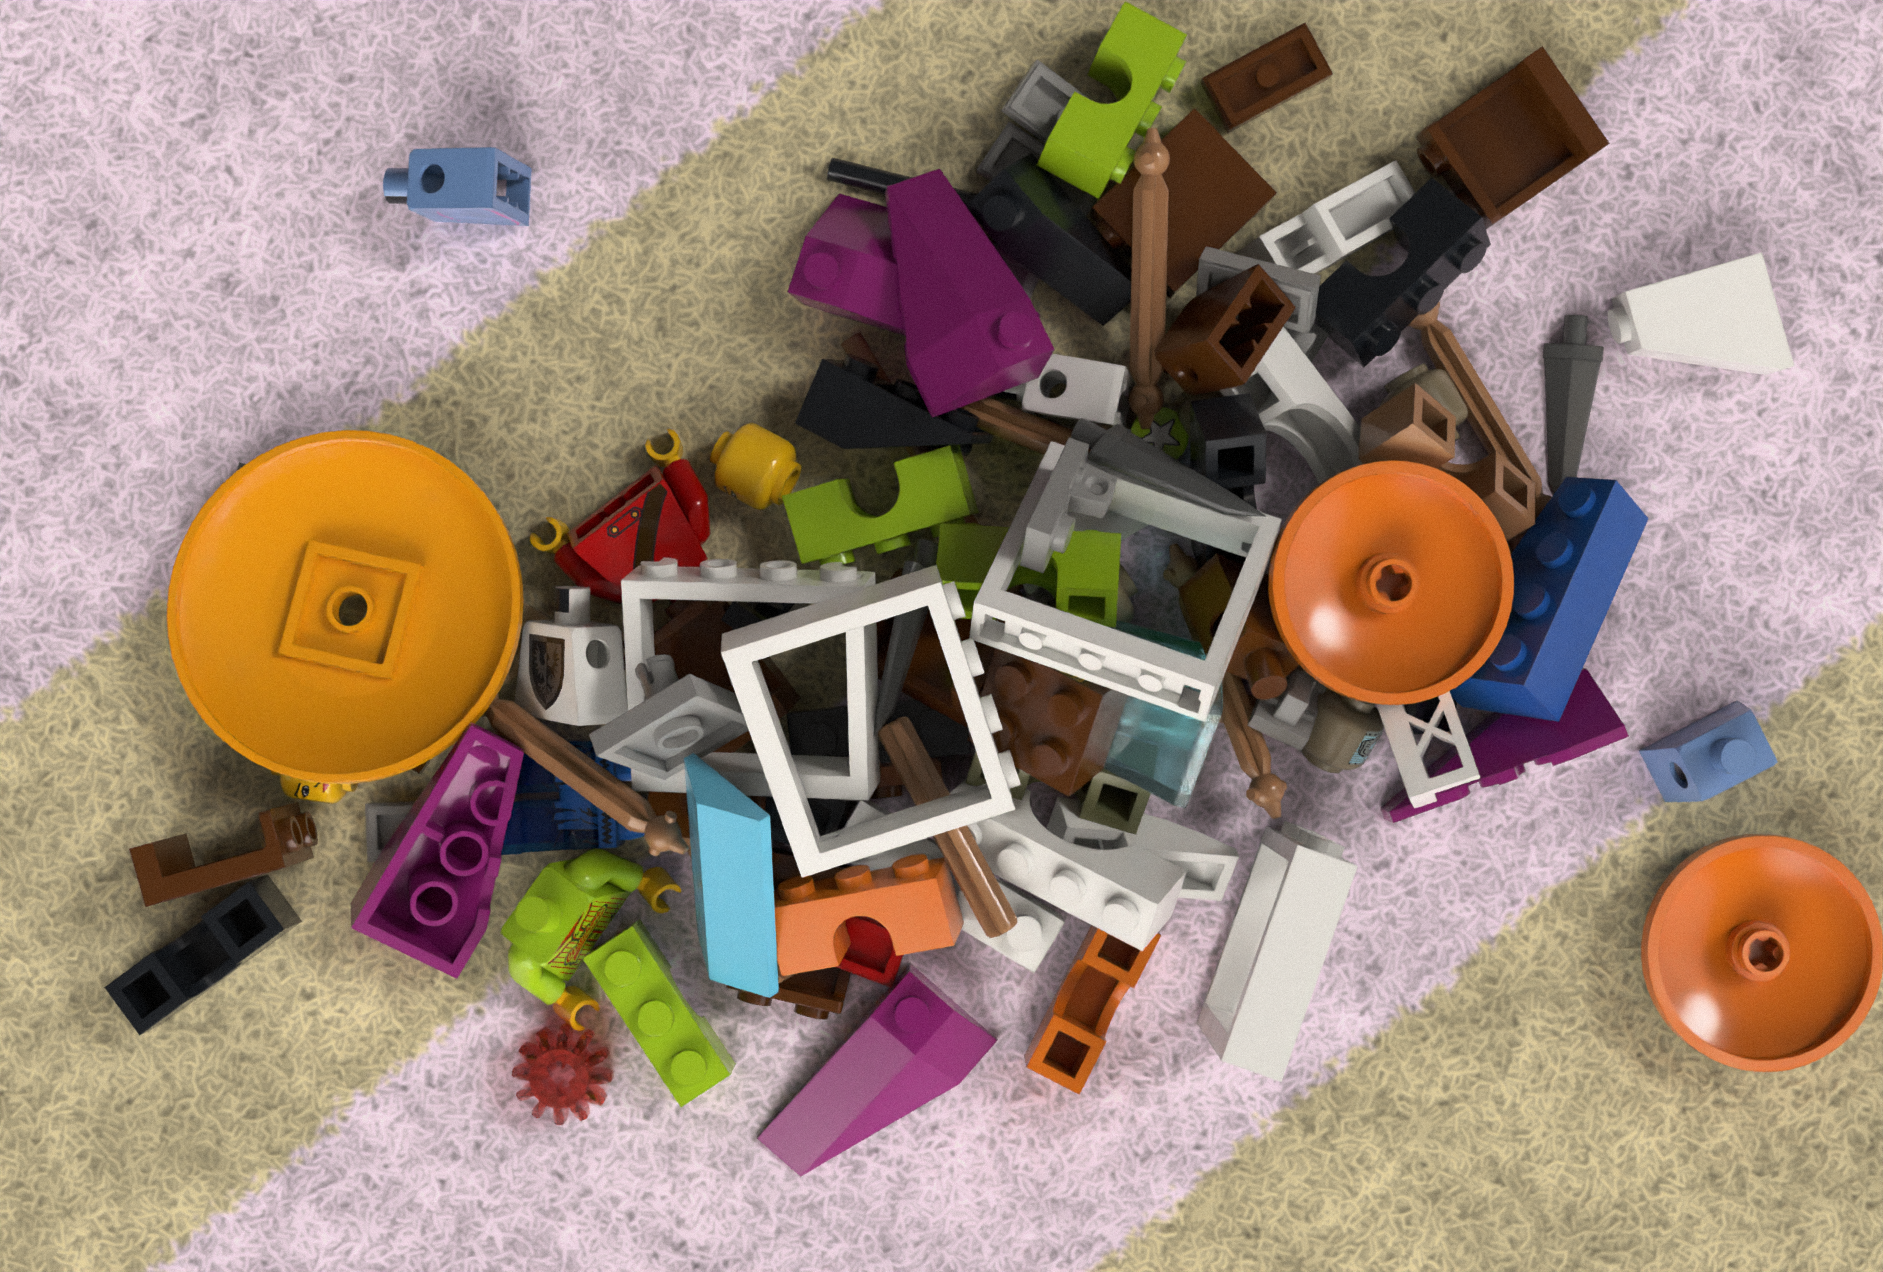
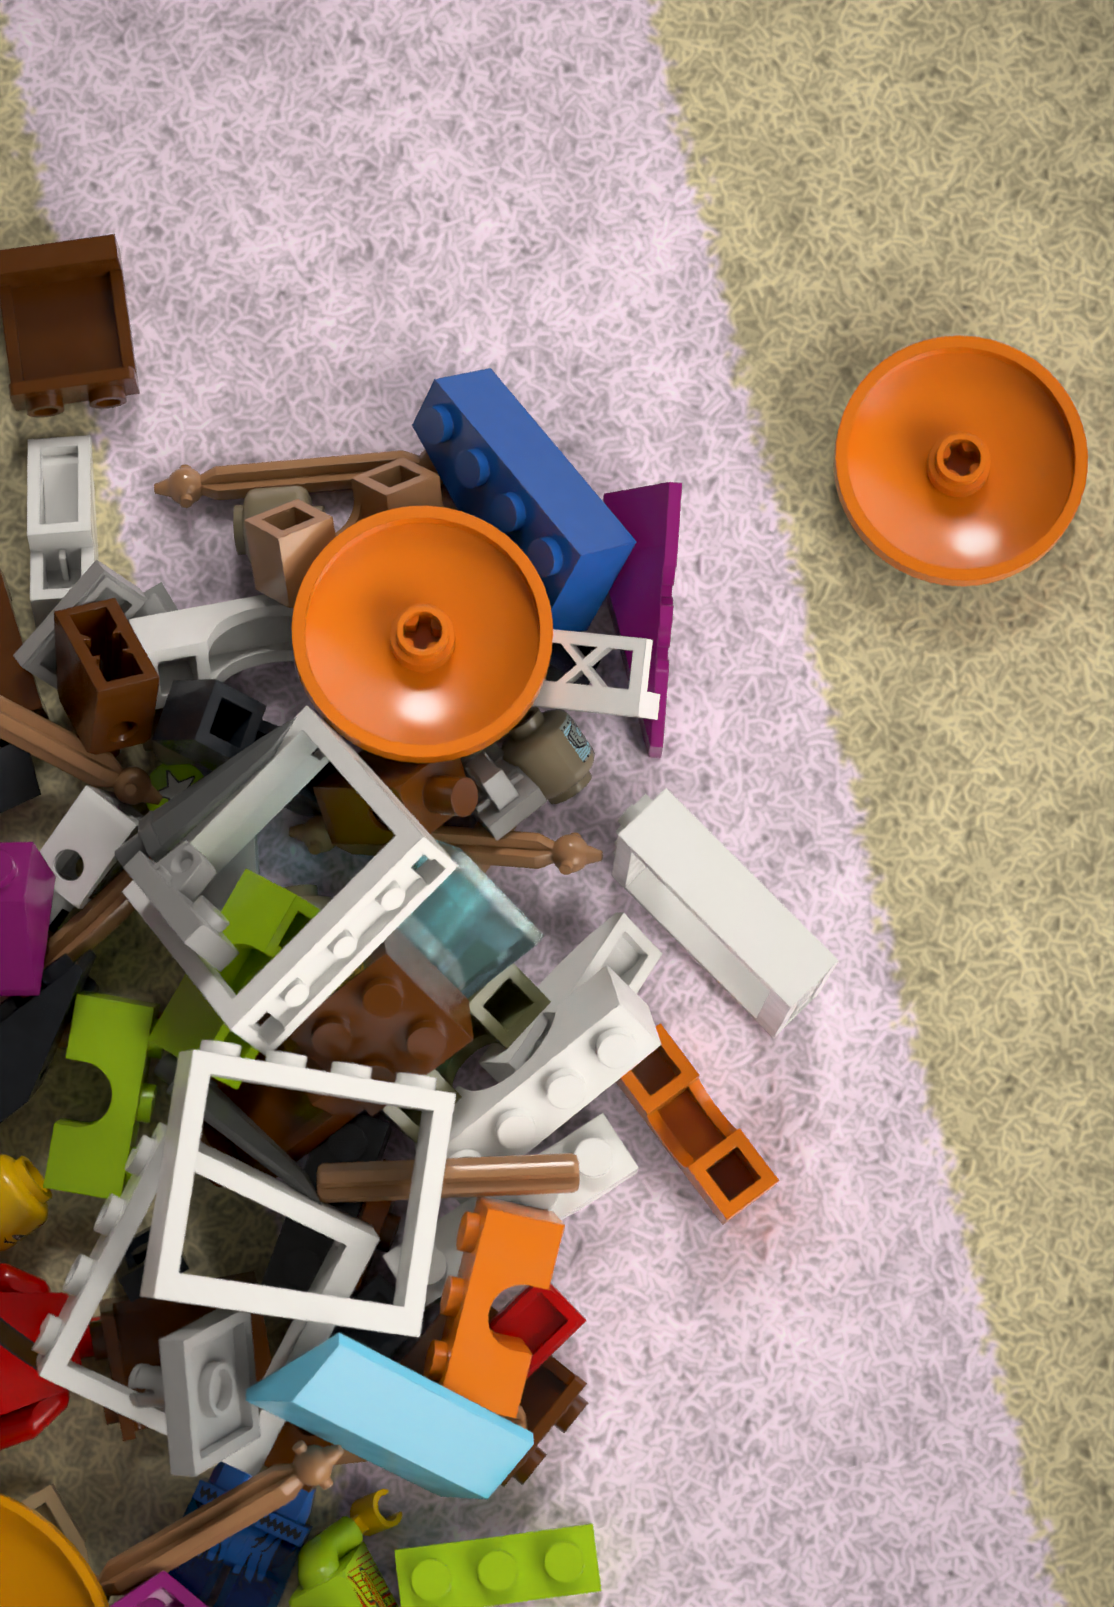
camera: 70 degrees left, 10 degrees down
(572, 665) = (100, 1482): white torso -> none
(887, 1066) = (667, 1364): magenta wedge -> none
(1370, 311) = (158, 532): black arch -> none
(1569, 390) = (333, 383): dark grey bar -> none
(1706, 319) = (328, 224): white slope -> none
(1711, 753) = (746, 418): medium blue torso -> none

